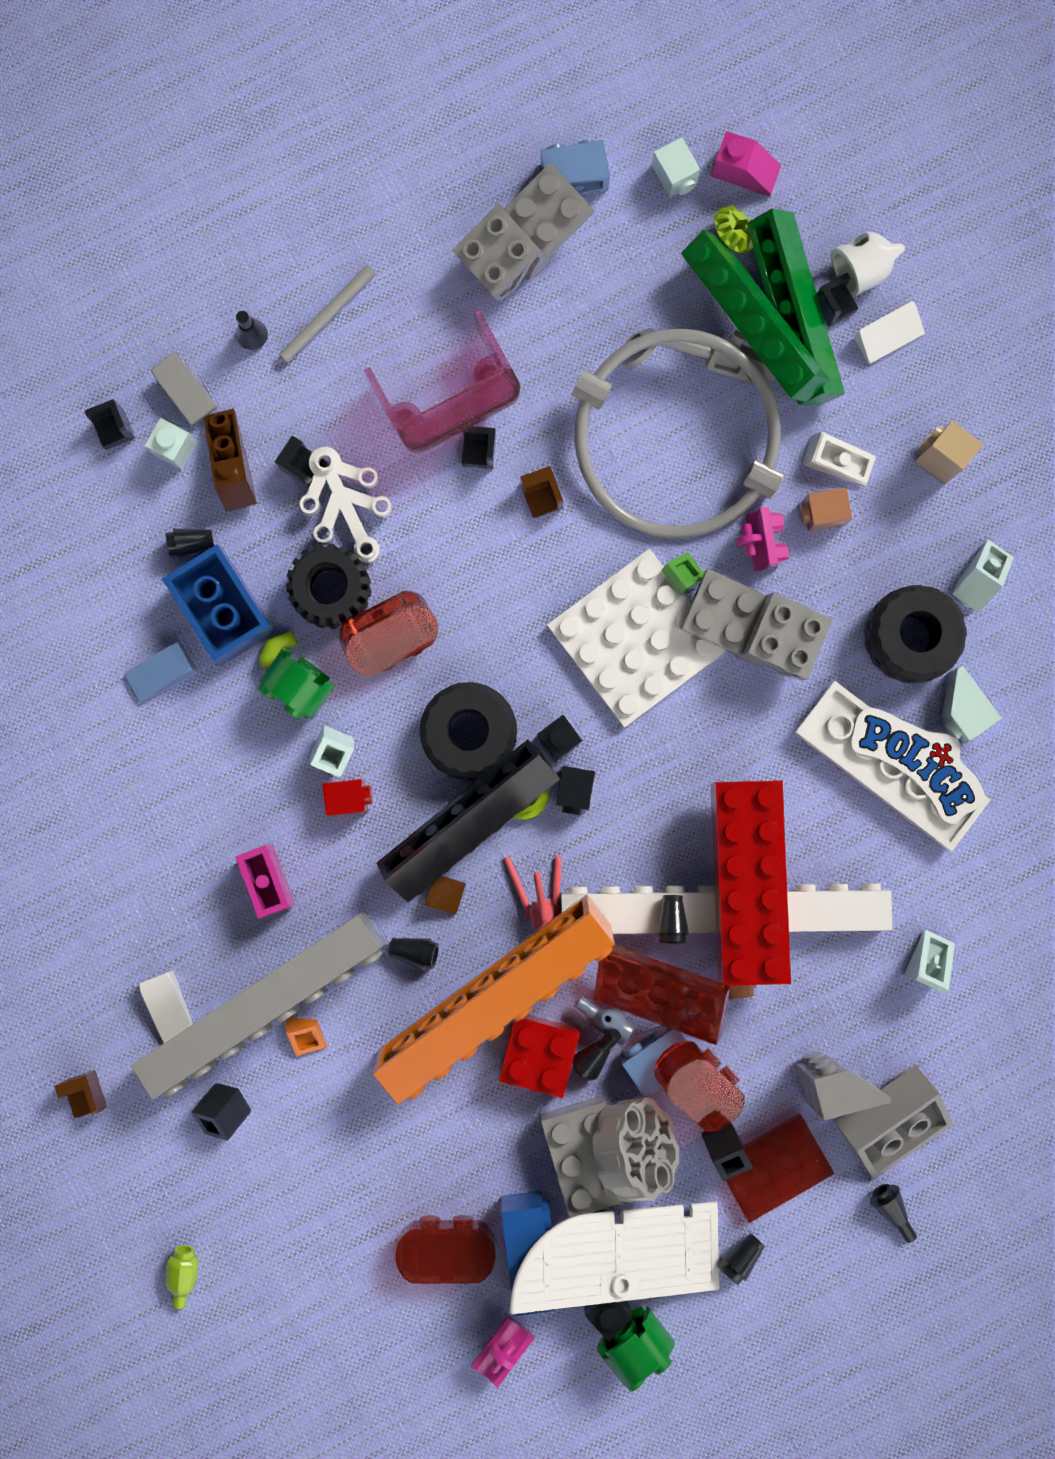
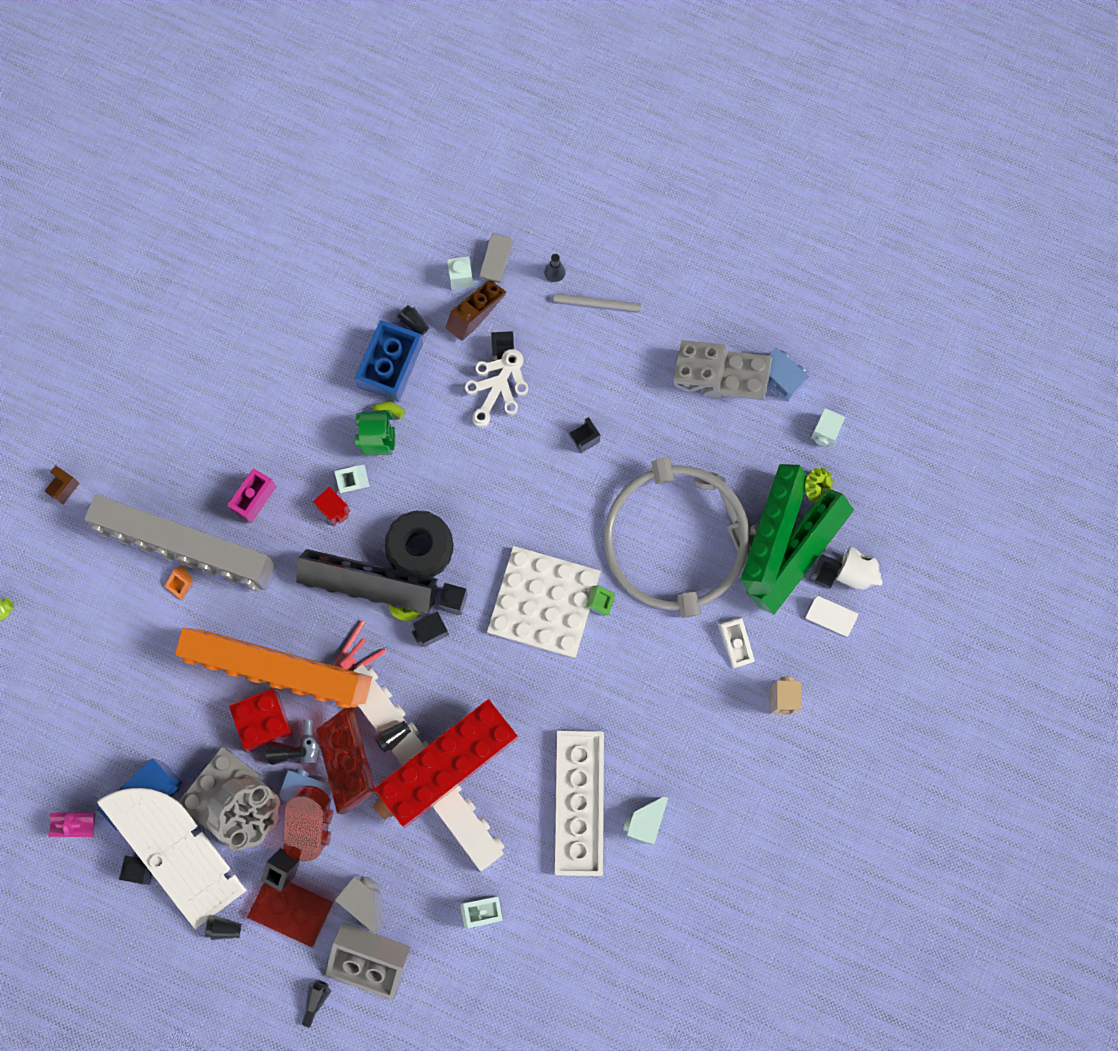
camera: 50 degrees right, 10 degrees down
(110, 424) = (447, 235): black panel -> none
(160, 671) = (330, 358): medium blue slope -> none
(166, 1005) = (145, 491): white slope -> none
(221, 1111) = (103, 567): black panel -> none
(310, 567) = (444, 394): black tyre -> none
(388, 633) = (441, 461): clear red brick -> none
(415, 951) = (271, 609): black cone -> none
(445, 894) = (316, 601): reddish brown slope -> none
(446, 1251) = (109, 750): clear red brick -> none
(493, 392) = (569, 395): clear pink windscreen -> none
(541, 492) = (586, 488): reddish brown panel -> none
(638, 1349) = (127, 901): green brick -> none
(746, 164) = (861, 464): dark pink slope -> none
(756, 625) = (600, 660): light grey piece -> none
(760, 541) = (652, 627): dark pink hips -> none
(826, 509) = (699, 653): nougat brick -> none
(923, 756) = (598, 817): sticker -> none
(942, 620) = (682, 741): black tyre -> none
(983, 576) = (732, 773): light aqua slope -> none

